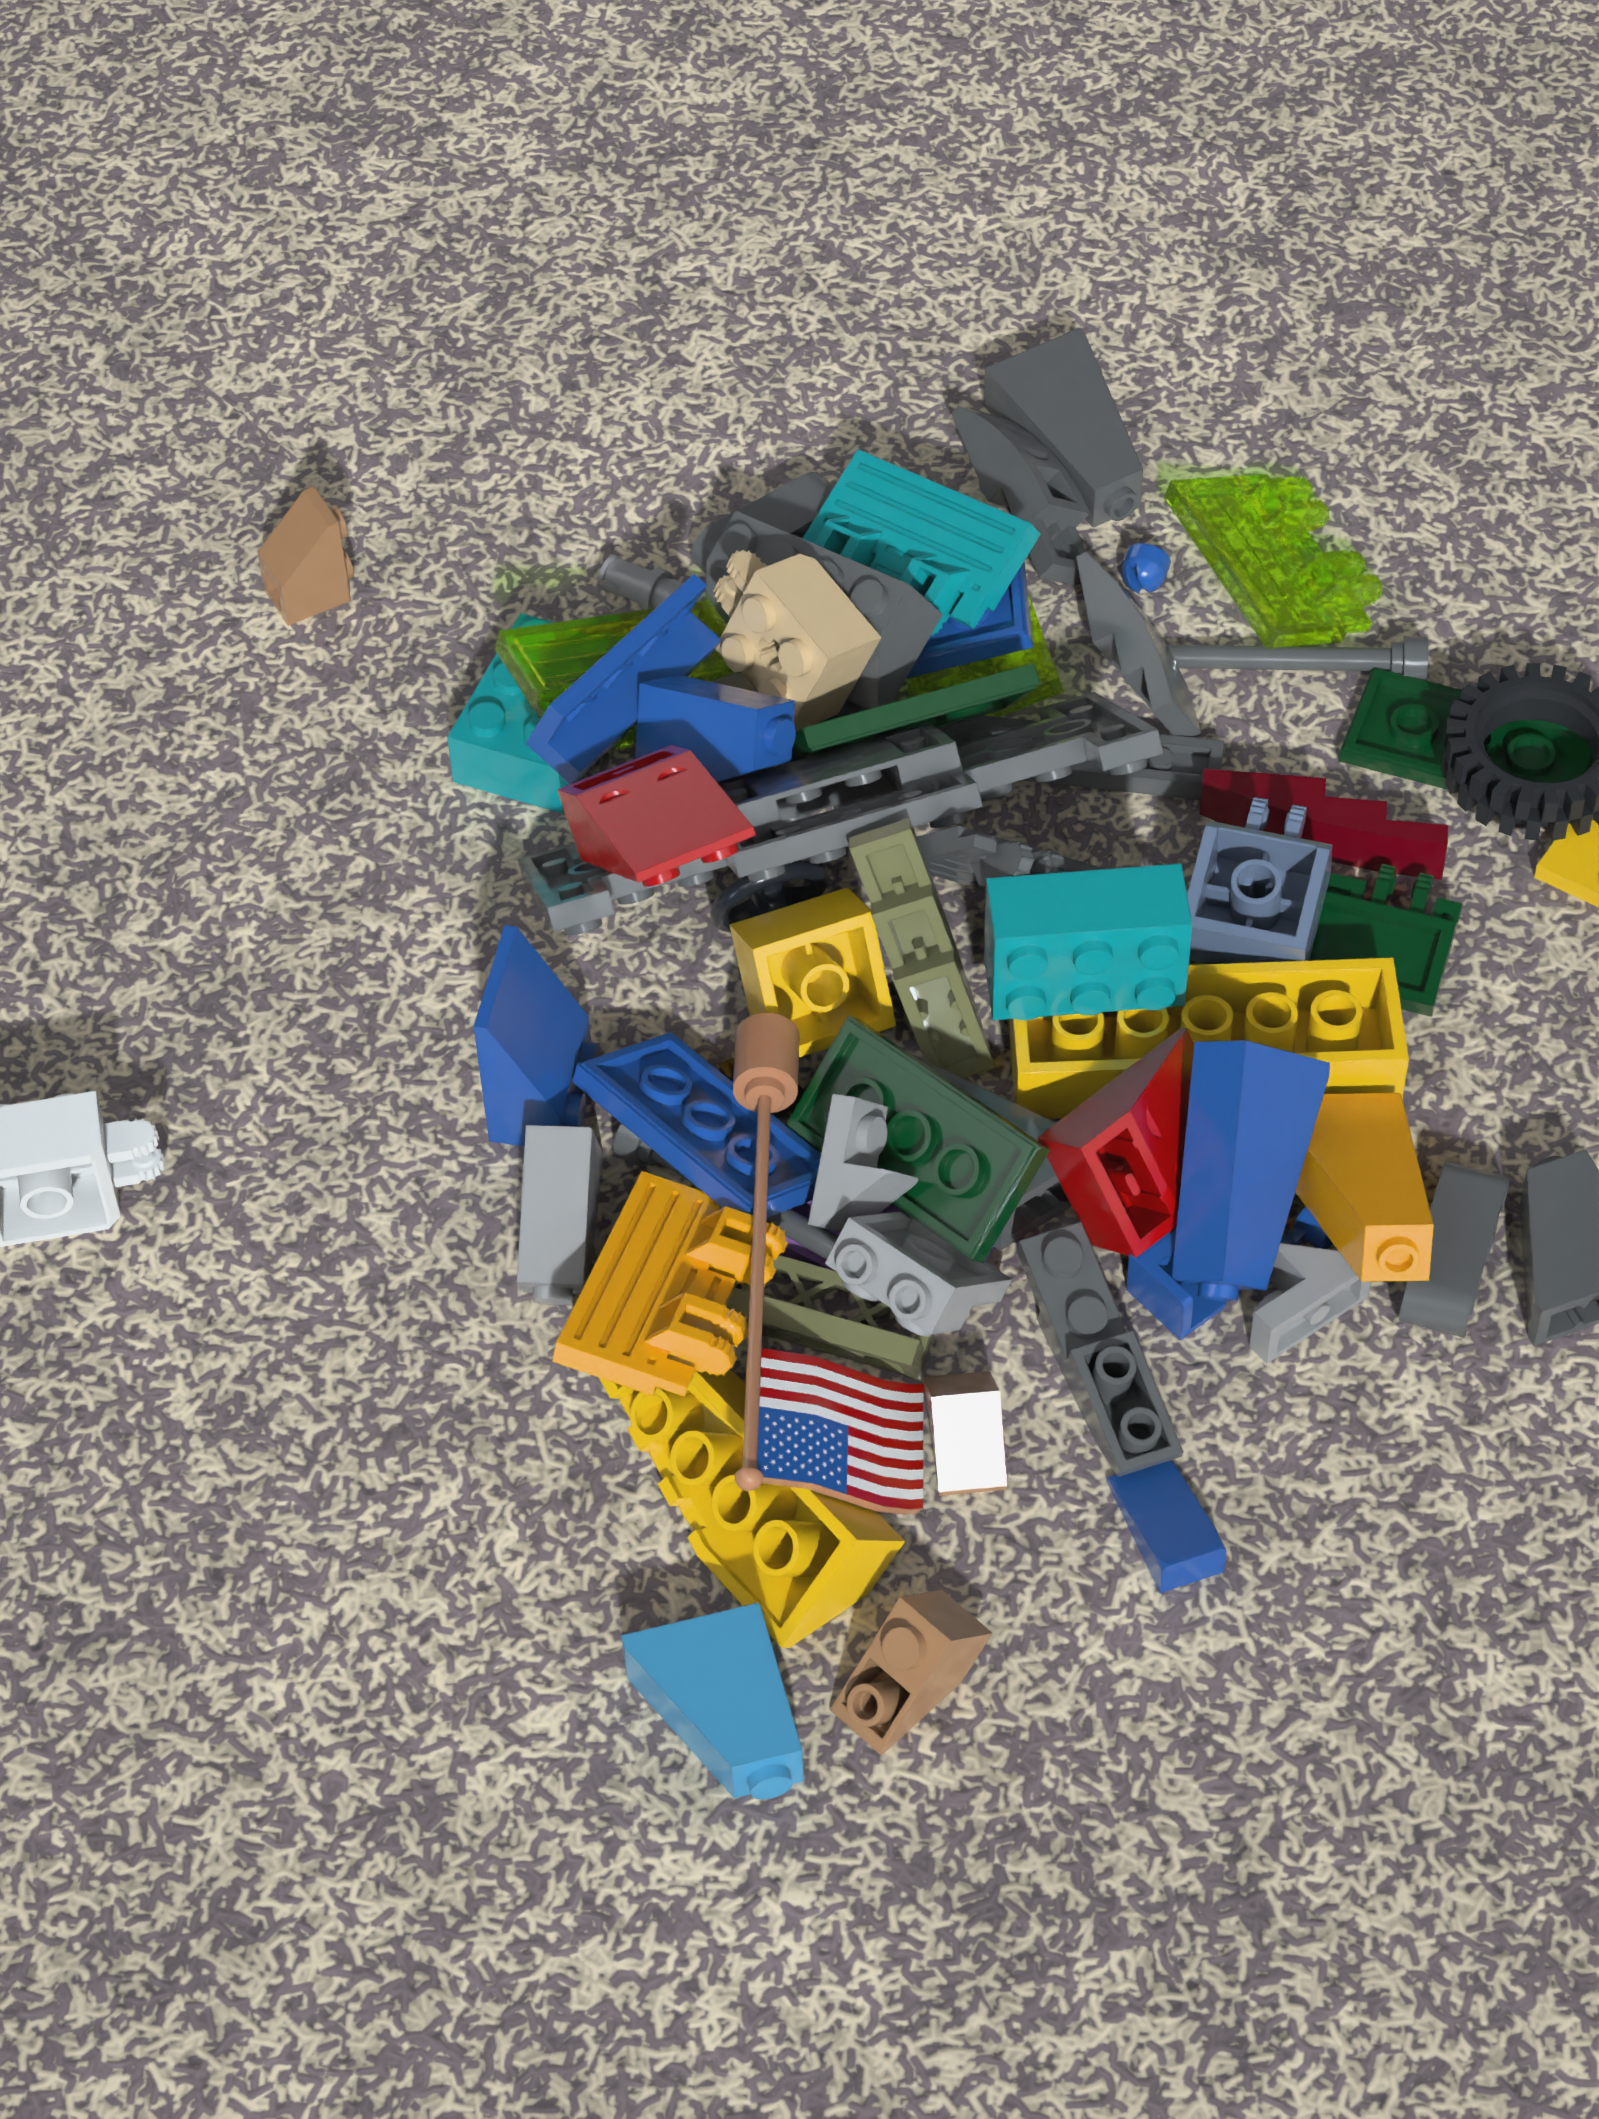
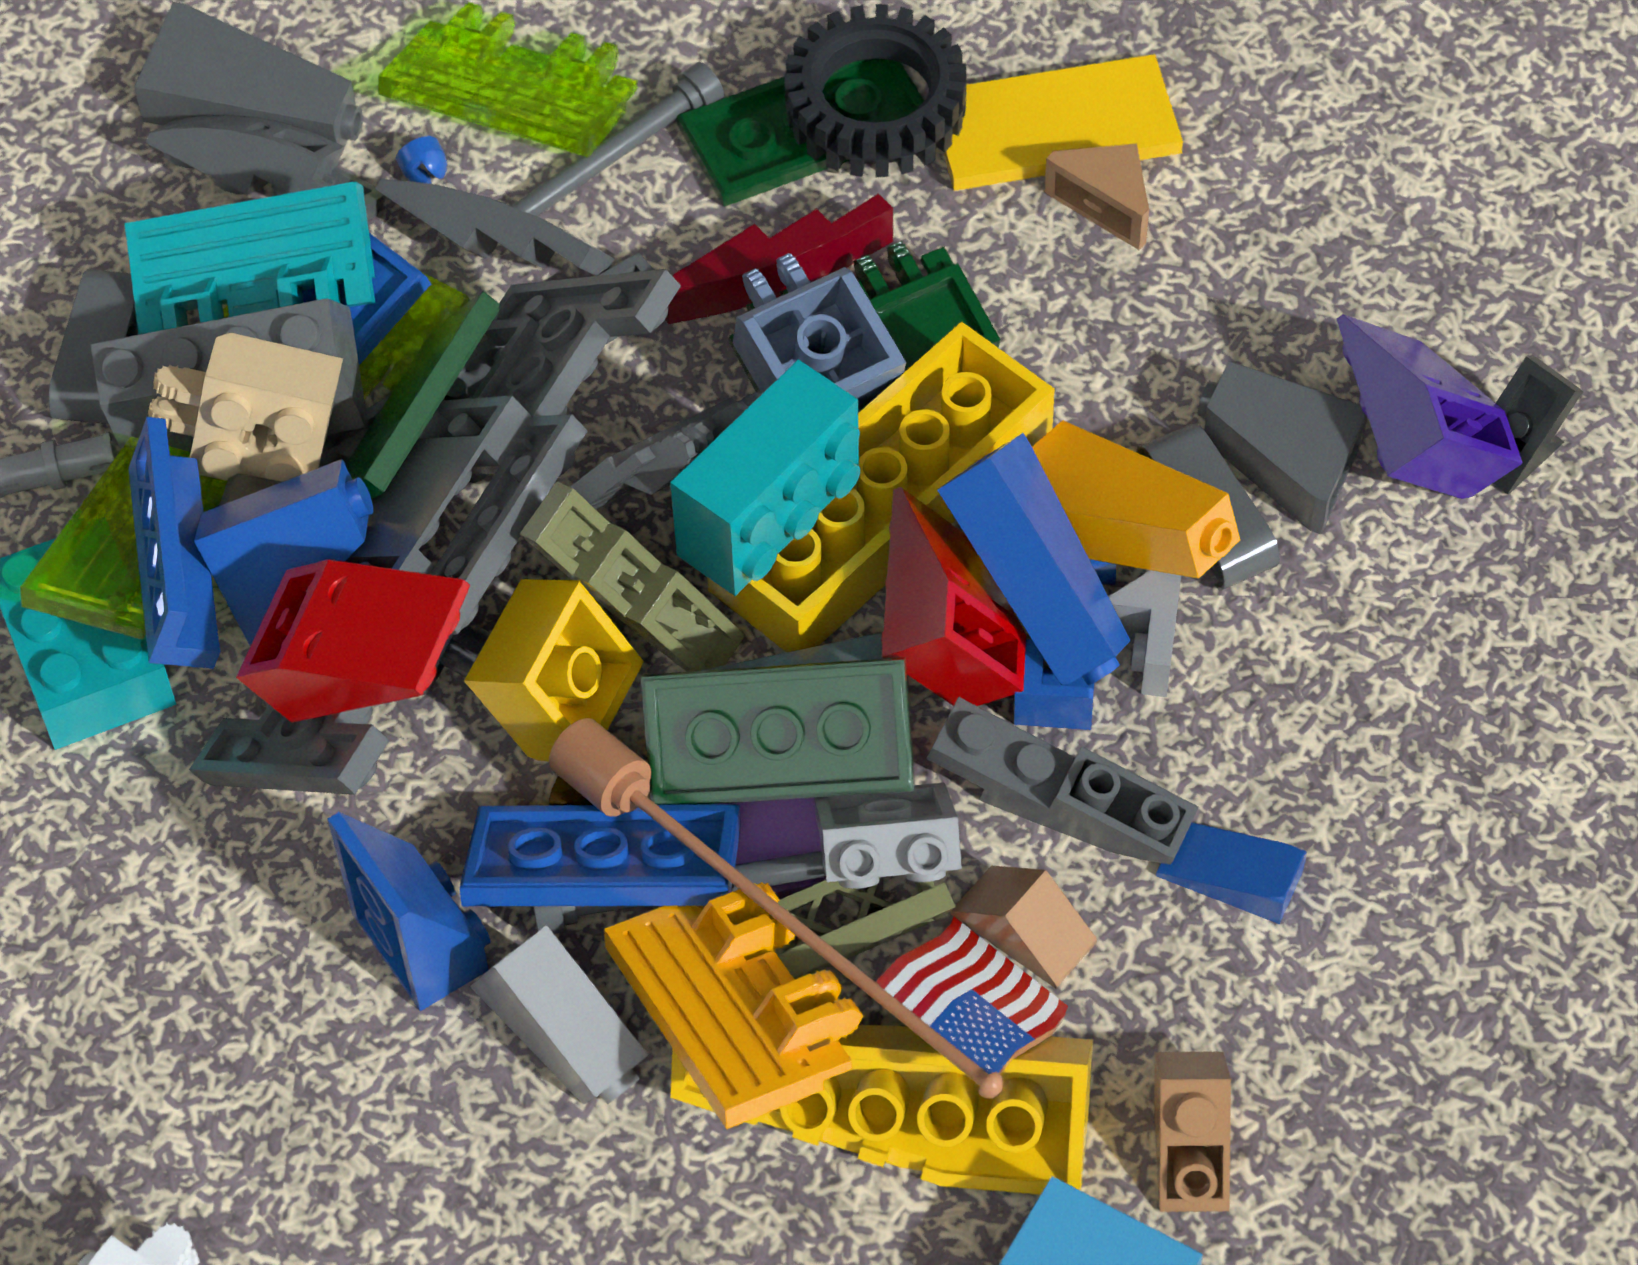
camera: 45 degrees left, 5 degrees up
(848, 1171) = (768, 807): light grey slope -> none

